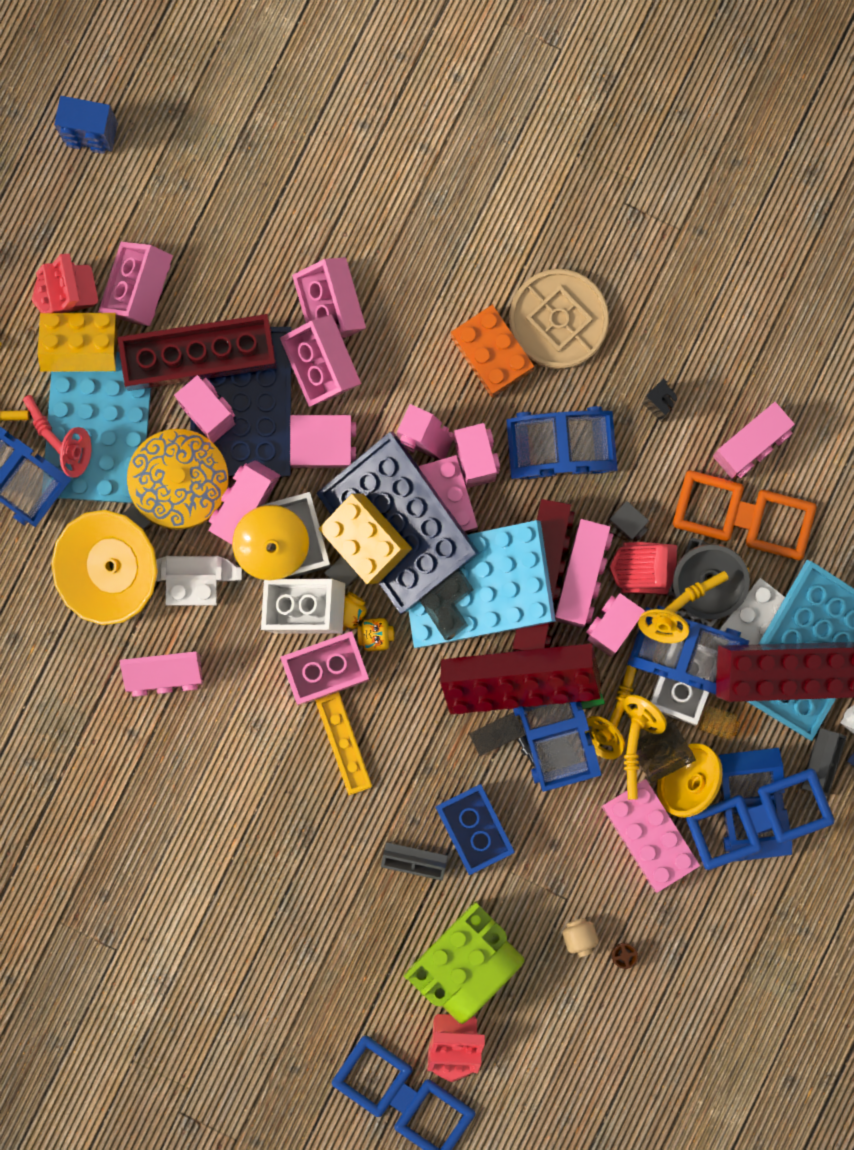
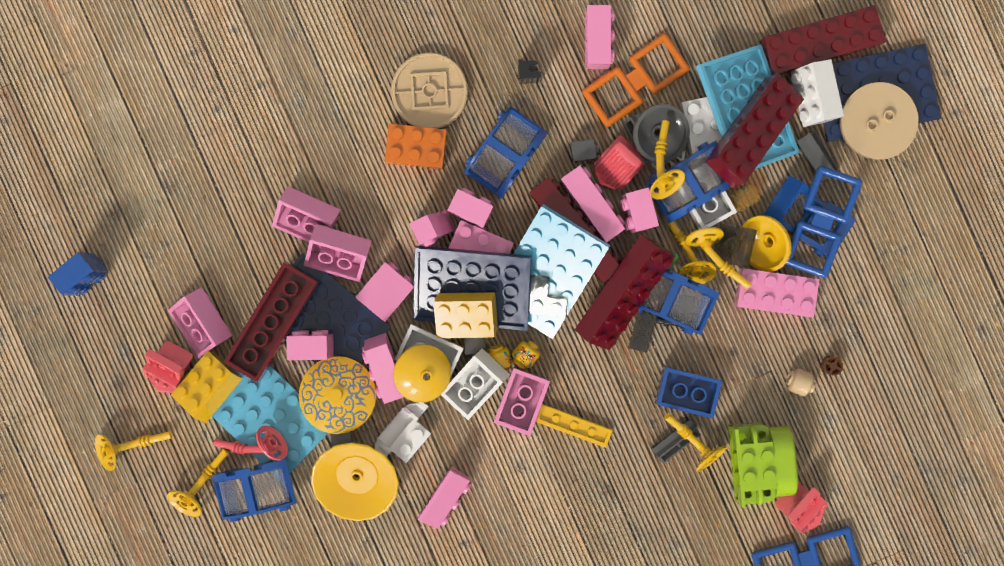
camera: 50 degrees left, 5 degrees up
(427, 904) = (708, 455): none -> yellow dish

